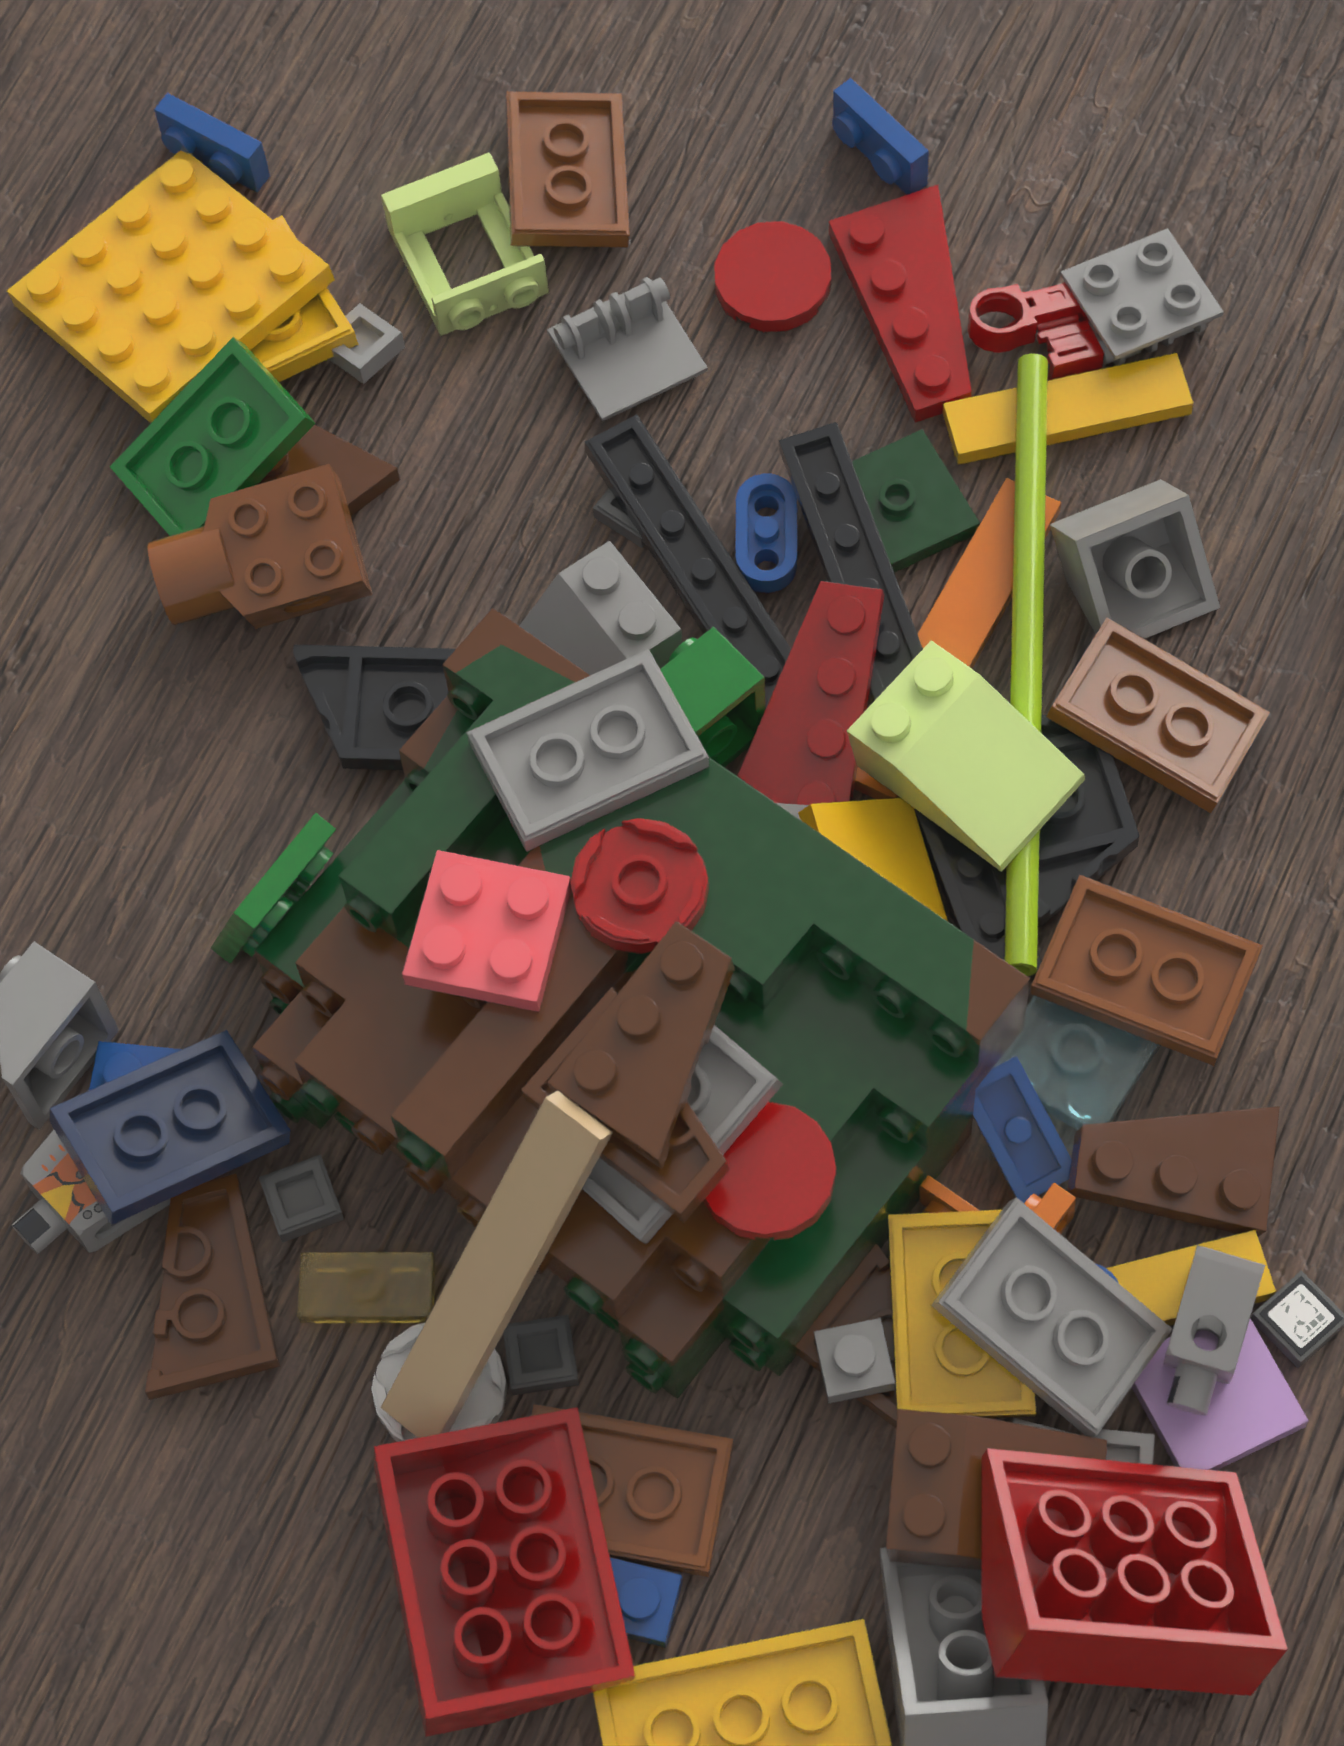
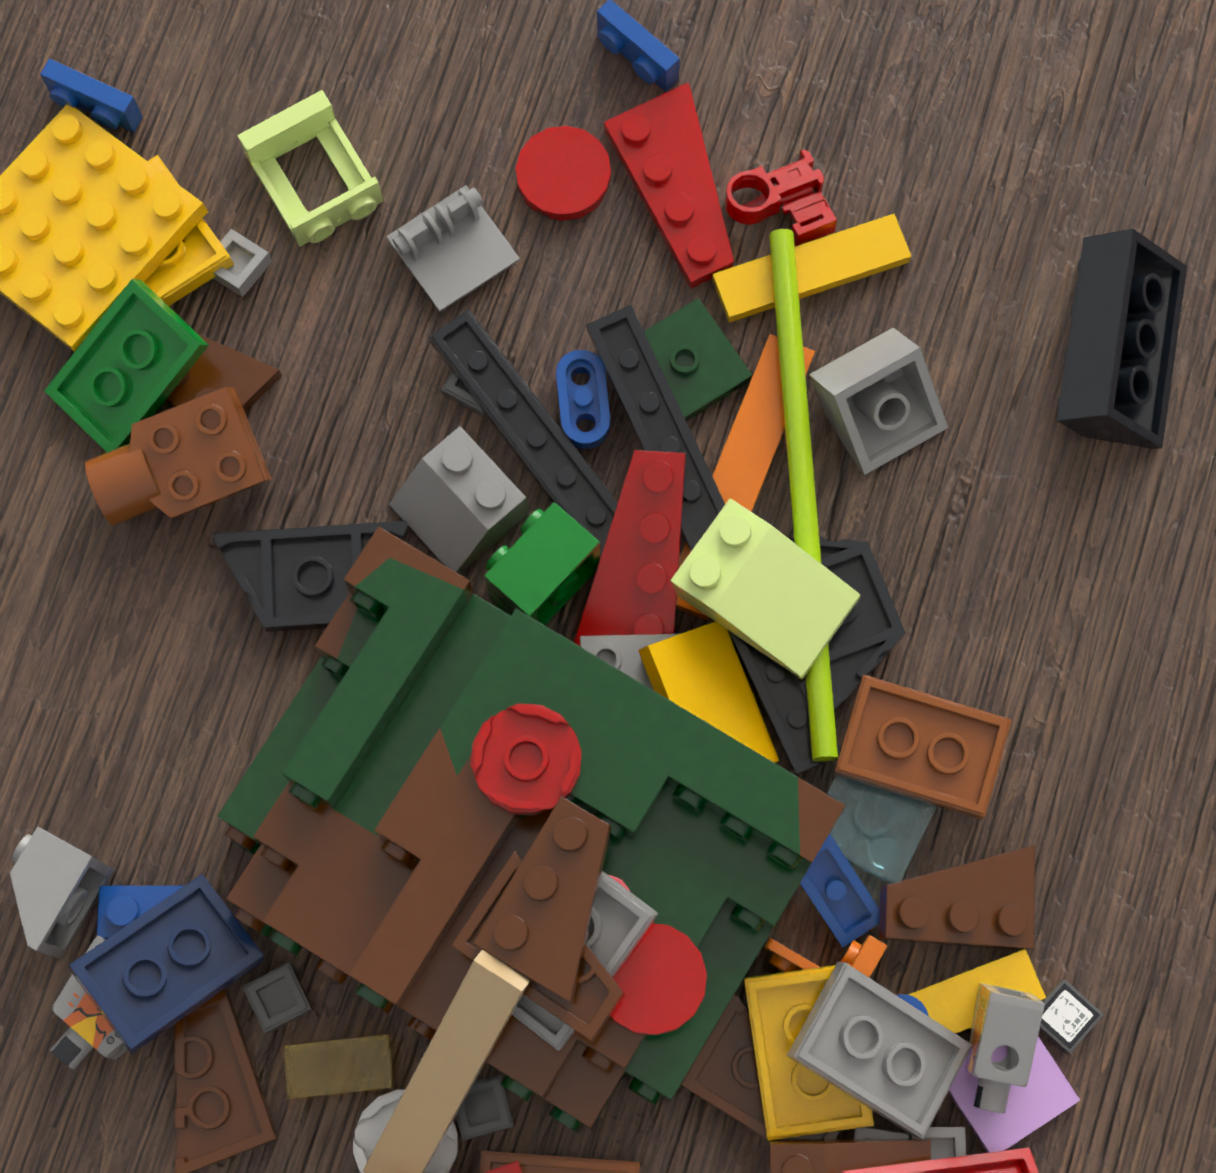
camera: 10 degrees left, 10 degrees up
(276, 891) = (217, 773): green plate -> none
(487, 931) = (408, 810): coral plate -> none
(566, 169) = (386, 94): dark orange tile -> none
(587, 749) = (471, 645): light grey tile -> none
(854, 1360) = (728, 1094): light grey plate -> none
(1142, 296) = (862, 167): light grey hinge -> none
(1158, 715) = (910, 528): tile -> none

